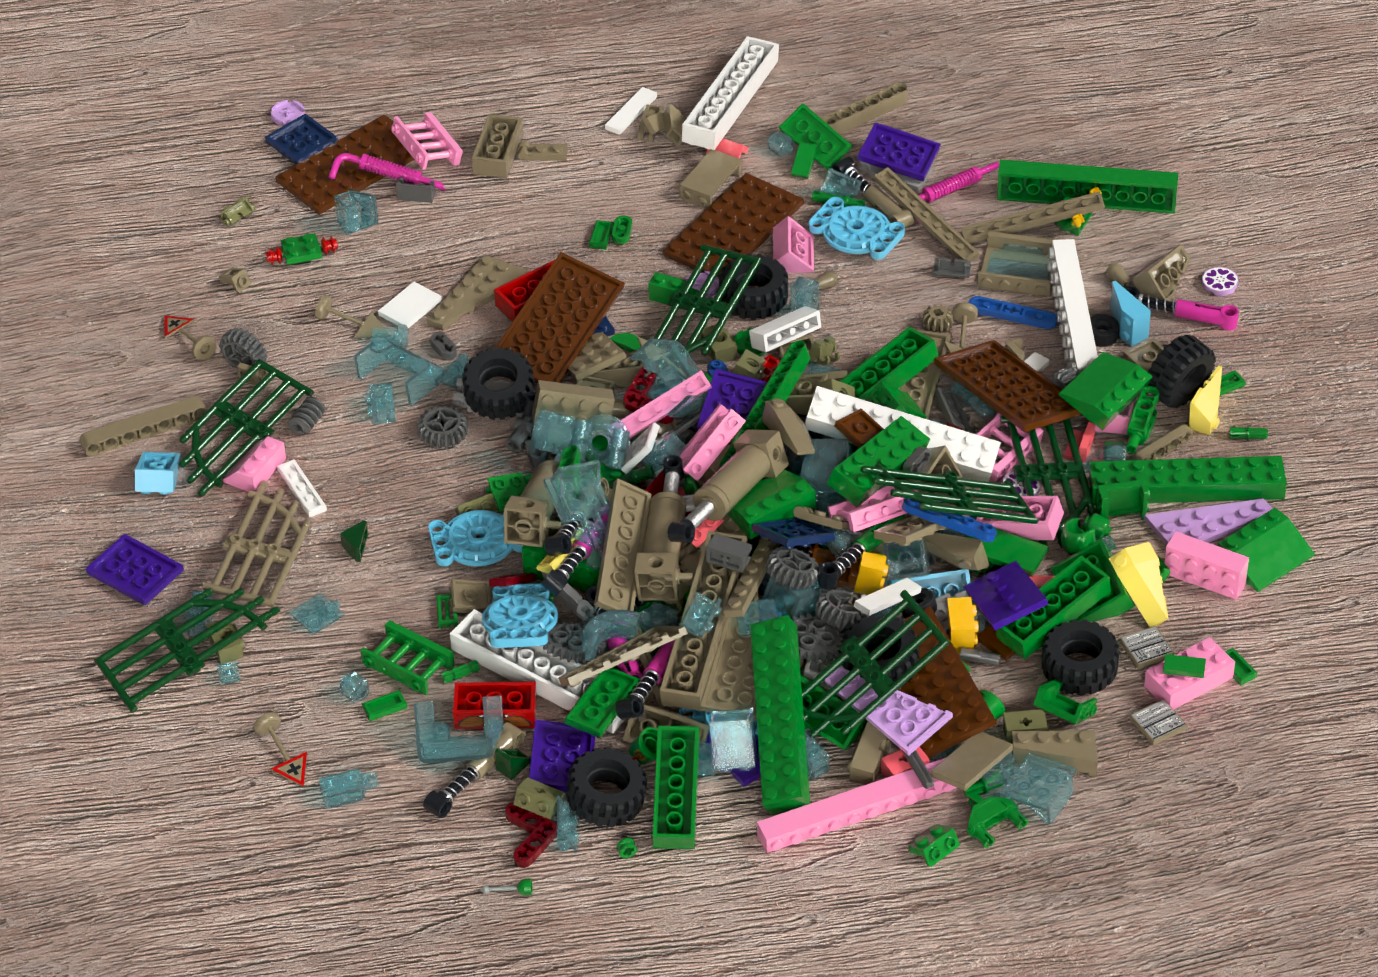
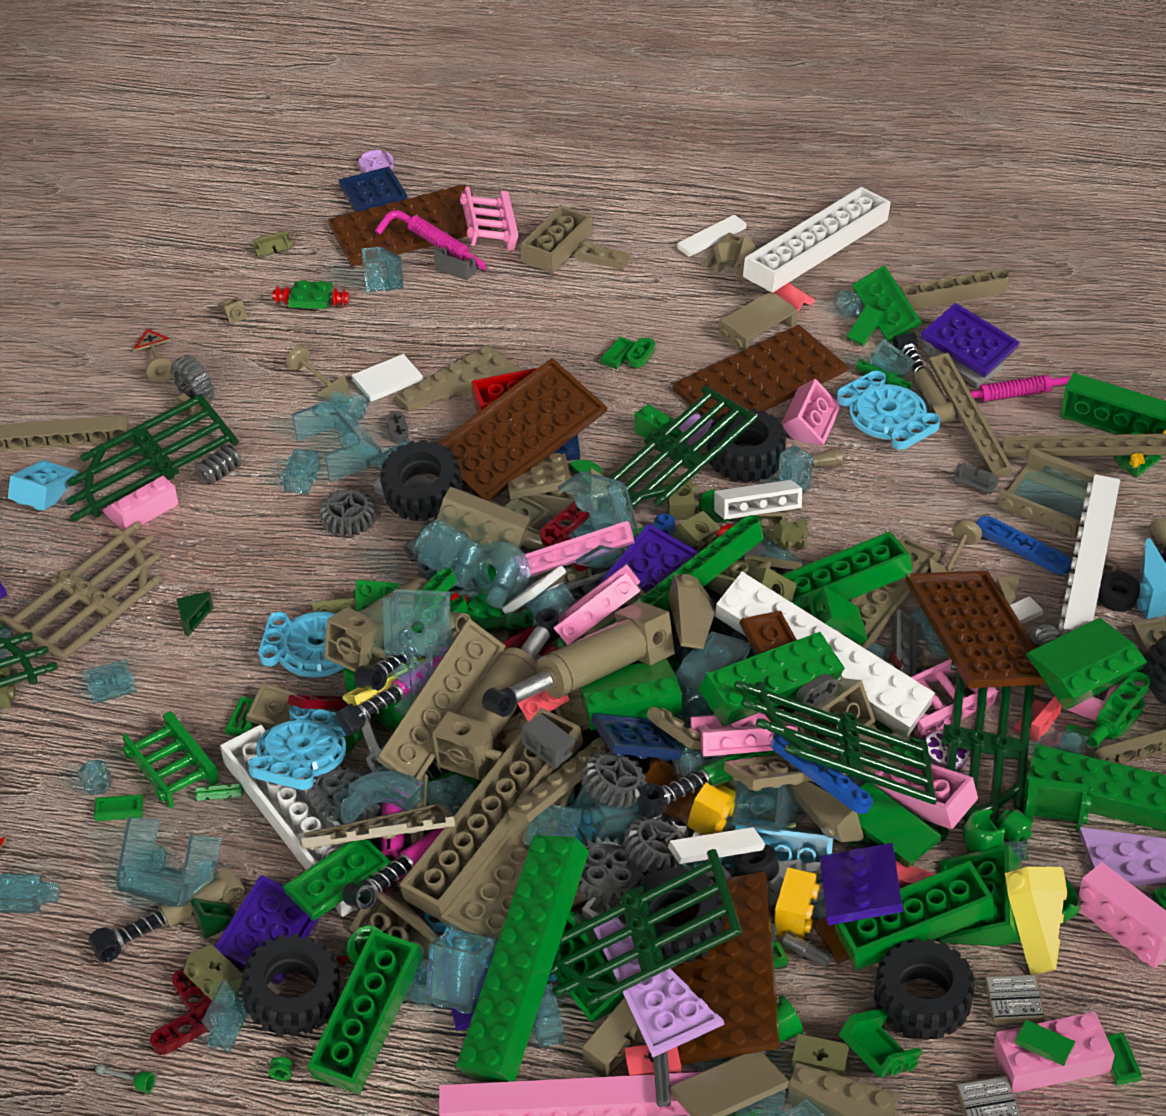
camera: 20 degrees right, 0 degrees up
(302, 488) = (174, 540): white tile -> none
(518, 703) = (244, 847): red brick -> none
(700, 615) = (481, 806): clear light blue bracket -> none
(937, 318) = (934, 530): dark tan gear -> none

